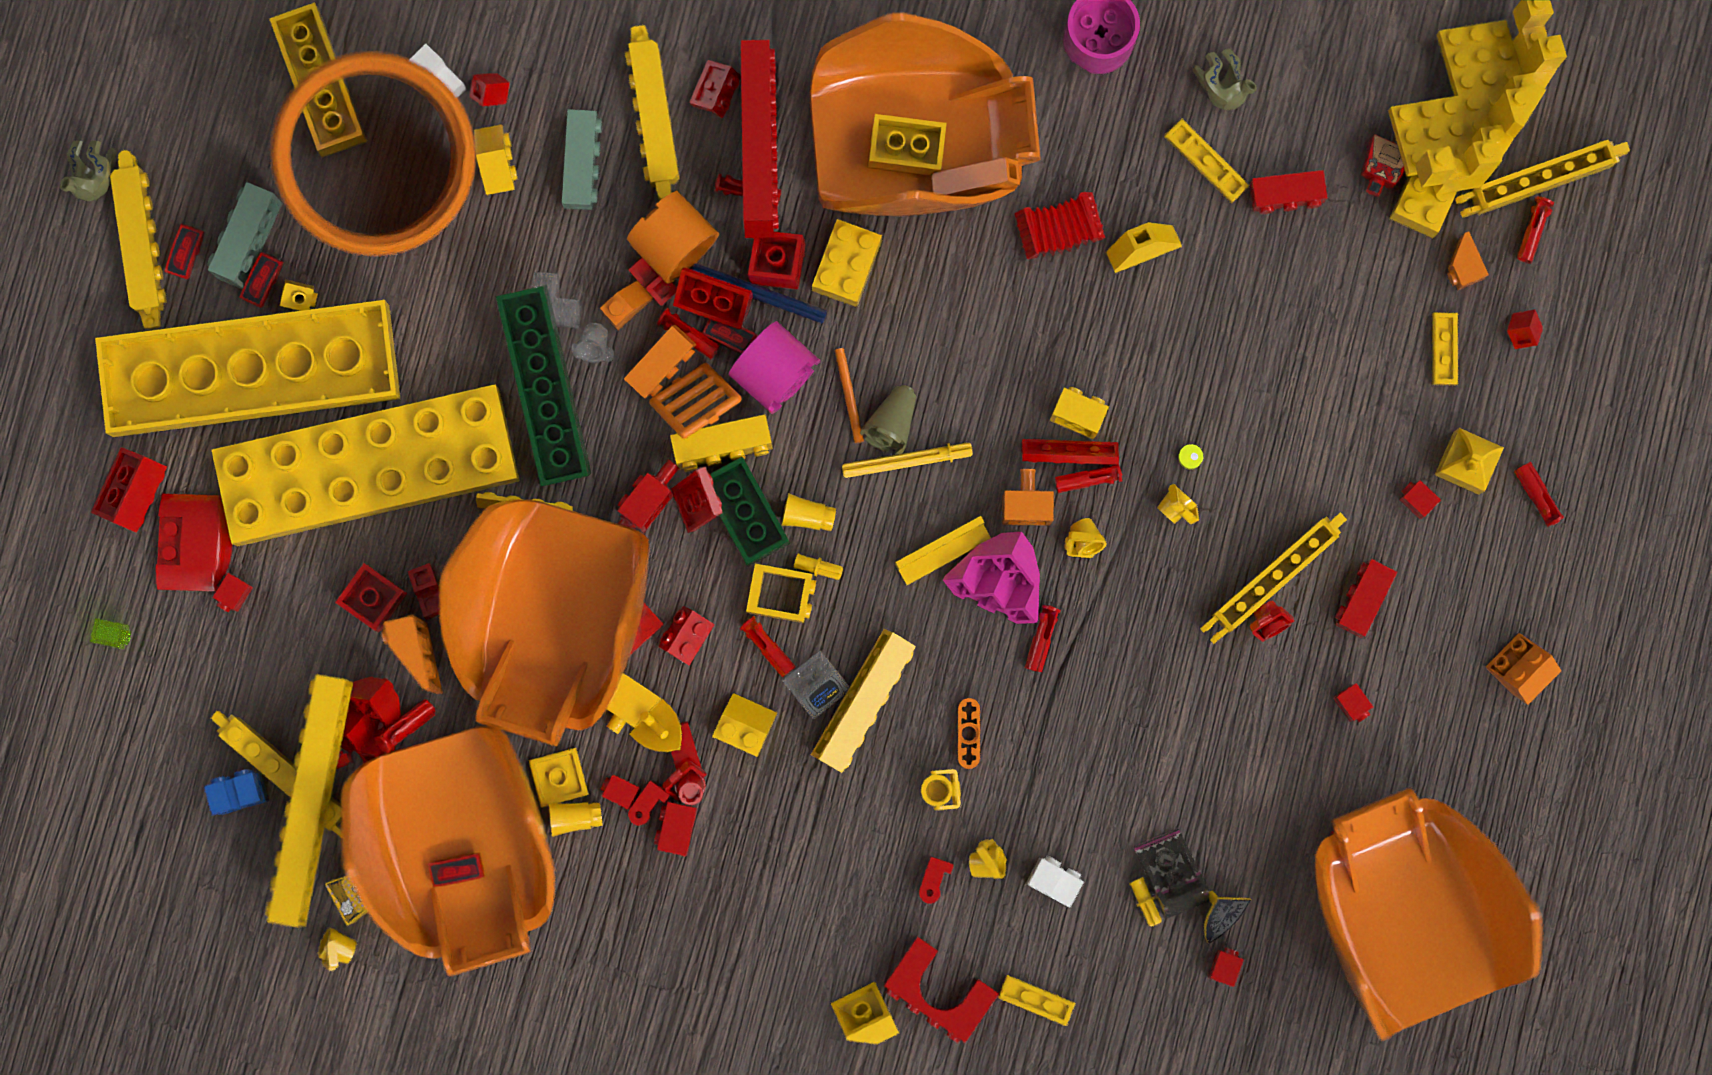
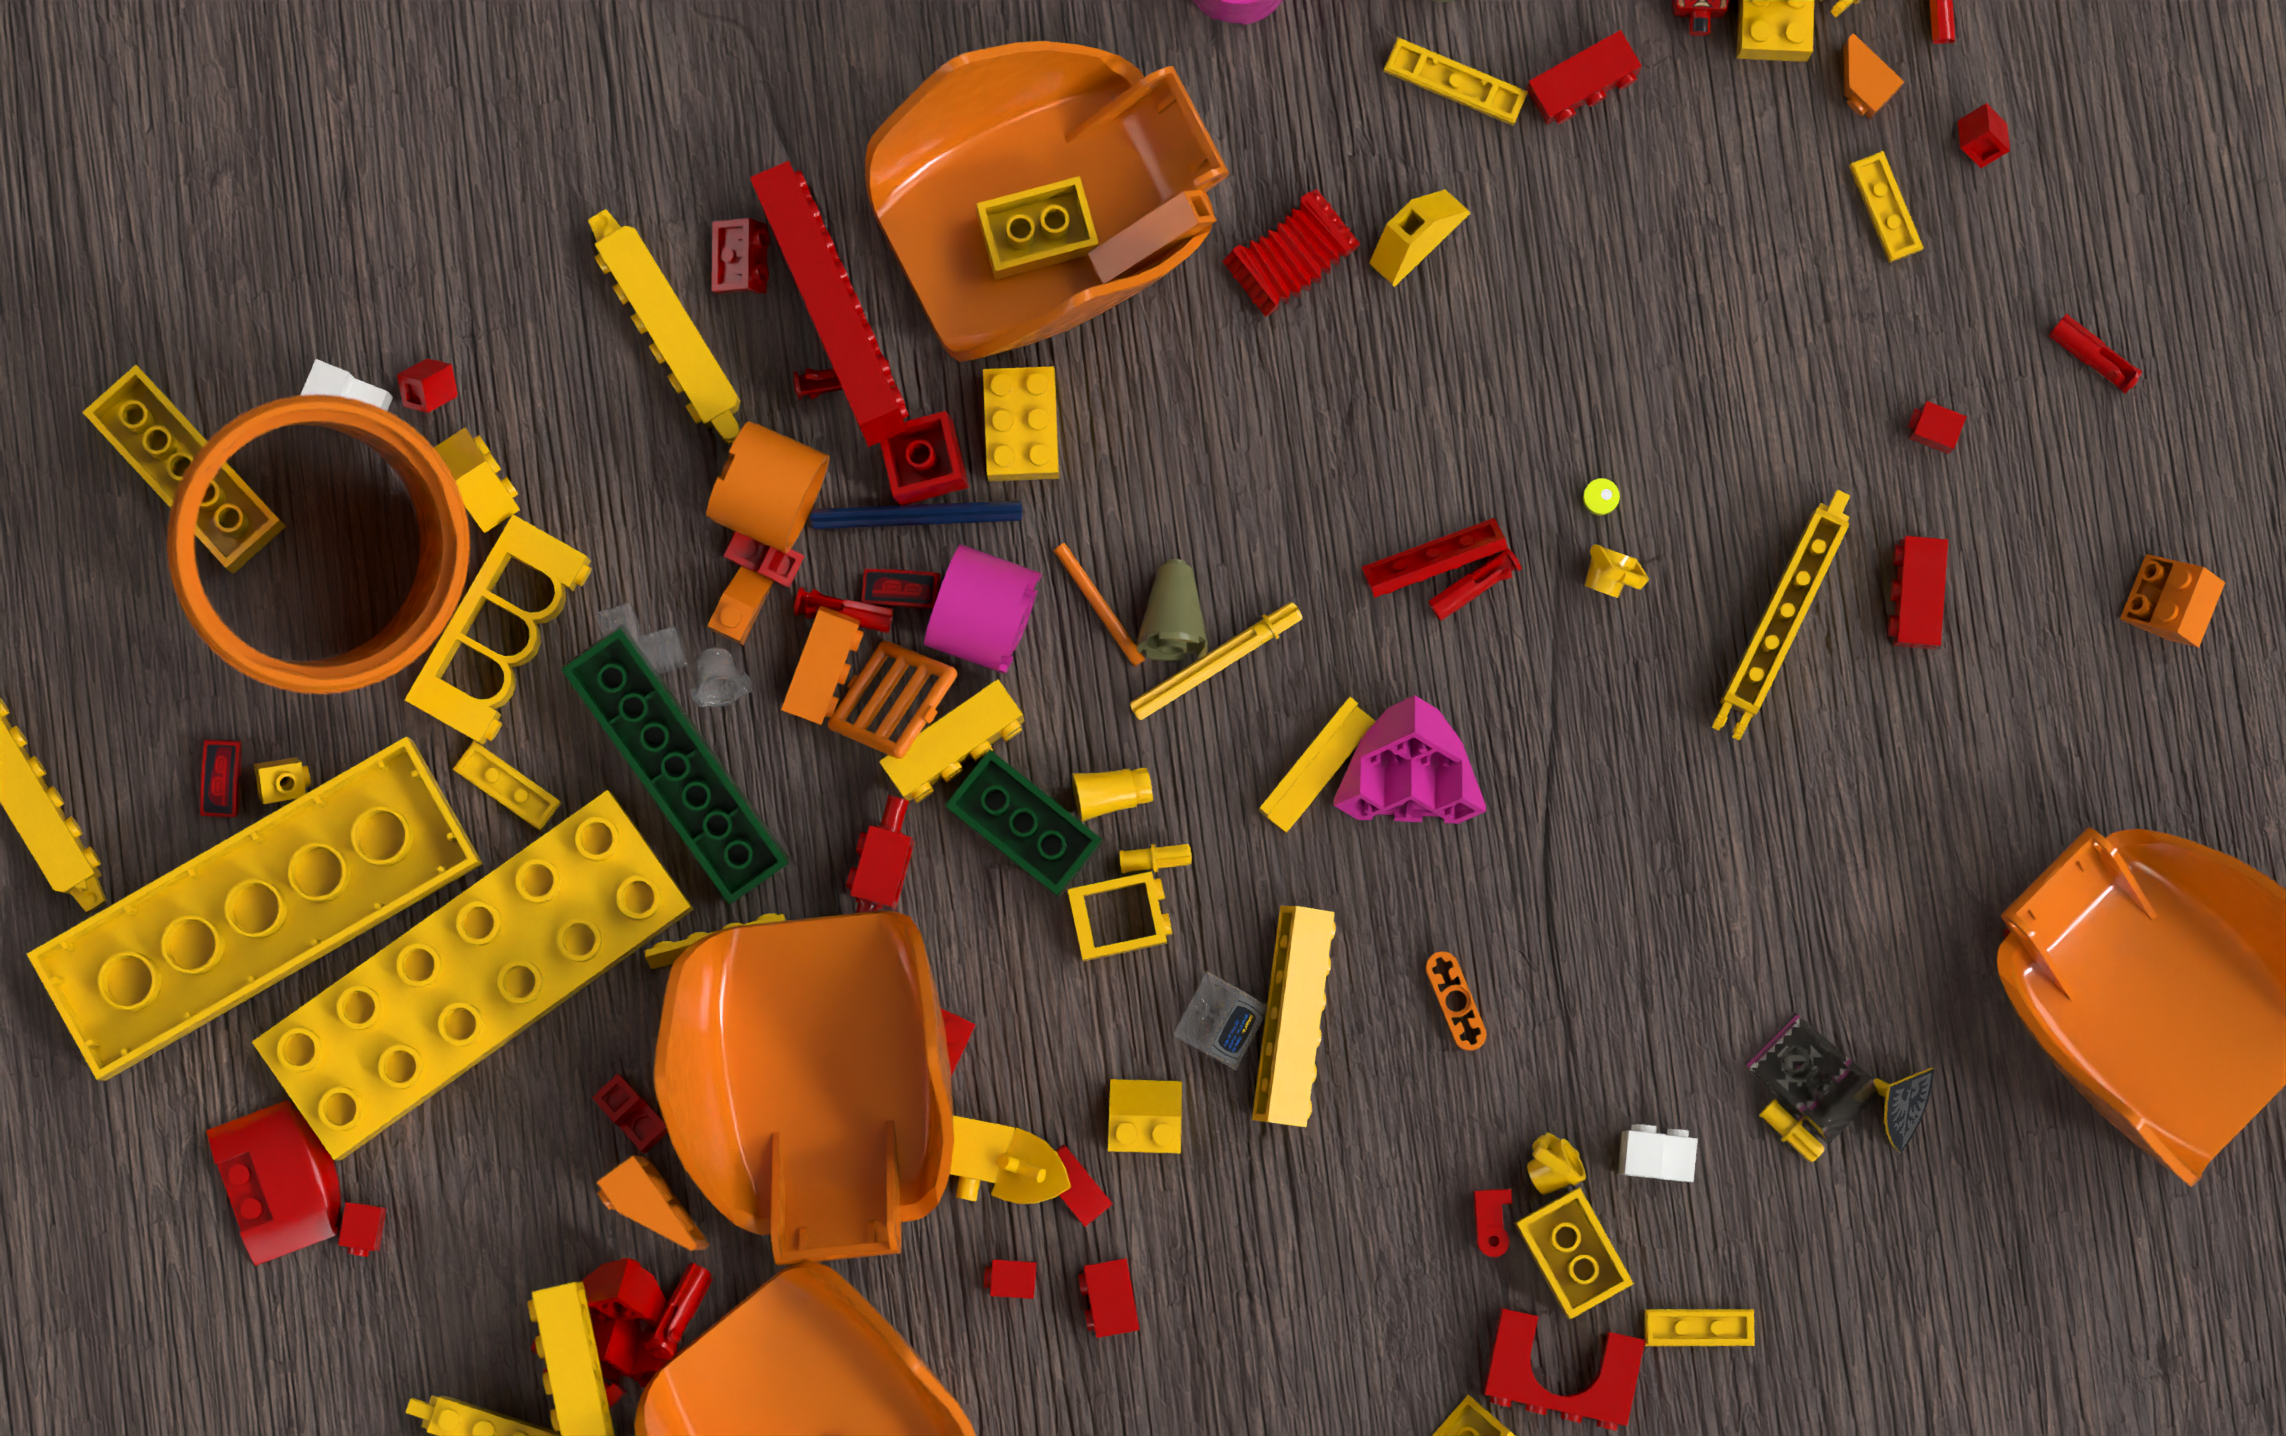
camera: 20 degrees left, 0 degrees up
(110, 634) = (216, 1354): clear neon green brick -> none
(129, 489) = (158, 1144): red slope -> none
(184, 250) = (97, 782): slope -> none
(244, 235) = (173, 726): sand green brick -> none
(371, 597) = (558, 1154): red brick -> none
(436, 357) = (507, 785): none -> yellow tile
(514, 218) = (542, 553): none -> yellow fence
(558, 777) = (918, 1294): yellow tile -> none
(574, 817) = (963, 1340): yellow plant -> none
(580, 159) = (594, 431): sand green brick -> none
(641, 809) = (1051, 1292): red leg -> none
(685, 635) = (1012, 1026): red bracket -> none
(688, 783) = (1100, 1229): red piece -> none
(697, 499) = (952, 834): red plate -> none
(712, 298) = (857, 548): red slope -> none
(767, 647) = (1131, 996): red piece -> none
(938, 789) = (1448, 1096): yellow piece -> none
(976, 921) = (1573, 1253): none -> yellow brick
(1027, 505) = (1406, 655): orange brick -> none
(1041, 640) = (1502, 830): red piece -> none
(1079, 412) = (1425, 499): yellow brick -> none
(1086, 539) = (1504, 667): yellow piece -> none
(1226, 967) = (1938, 1174): red brick -> none
(1271, 621) = (1803, 676): red piece -> none
(1353, 703) = (1962, 743): red brick -> none
(1469, 461) = (1982, 347): yellow piece -> none

